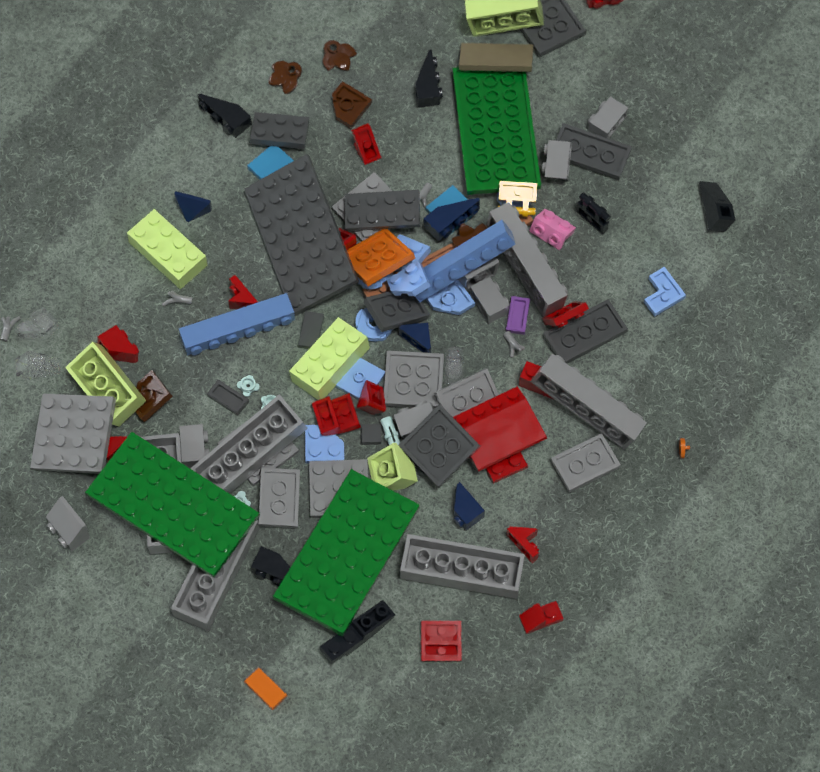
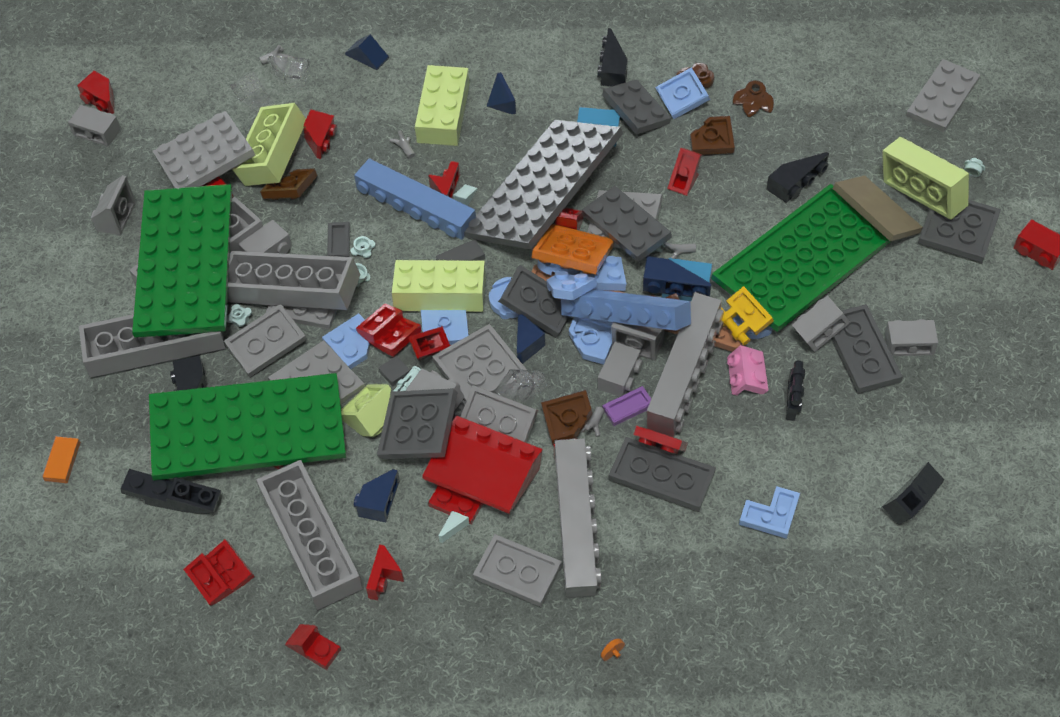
camera: 55 degrees right, 10 degrees down
(64, 263) = (368, 52): none -> dark blue slope
(259, 291) = (465, 194): none -> light aqua piece
(294, 94) = (682, 93): none -> light blue plate
(498, 355) = (567, 415): none -> reddish brown plate
(521, 477) = (453, 525): none -> light aqua piece

